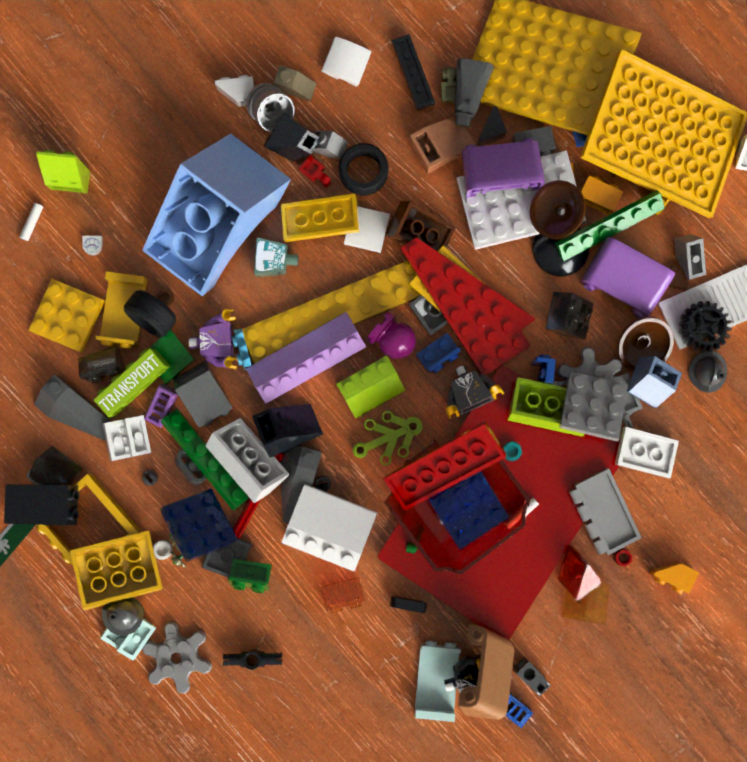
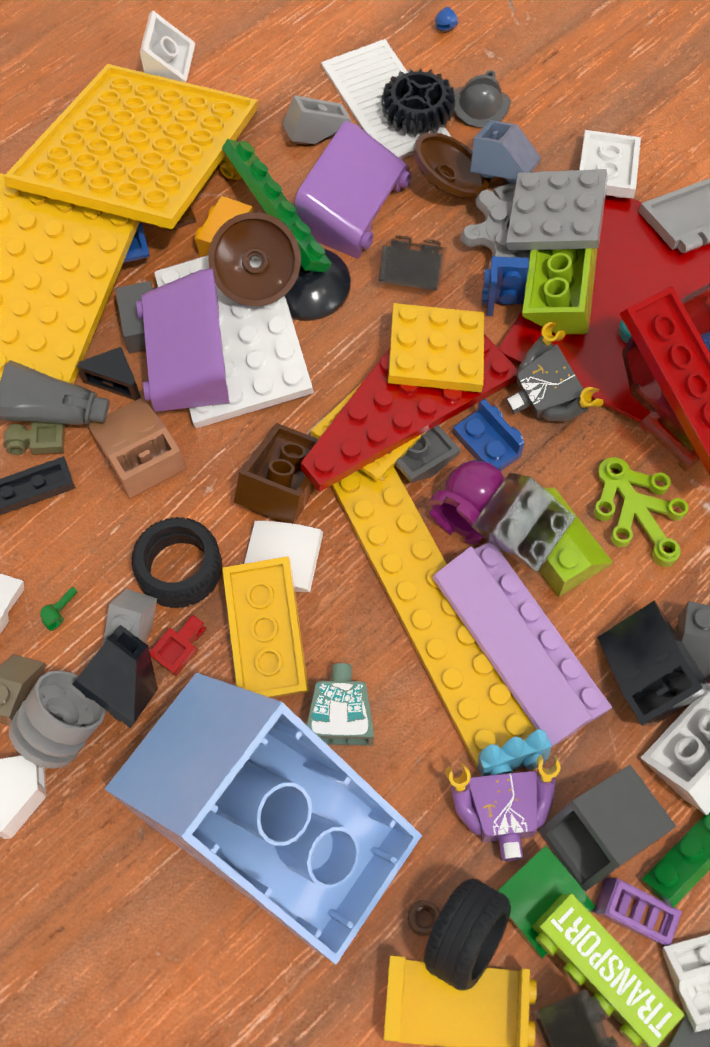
camera: 90 degrees left, 20 degrees down
(337, 101) = (50, 613): none -> green hand
(369, 361) = (523, 520): none -> clear smoke slope
(498, 323) = (436, 348): none -> yellow plate

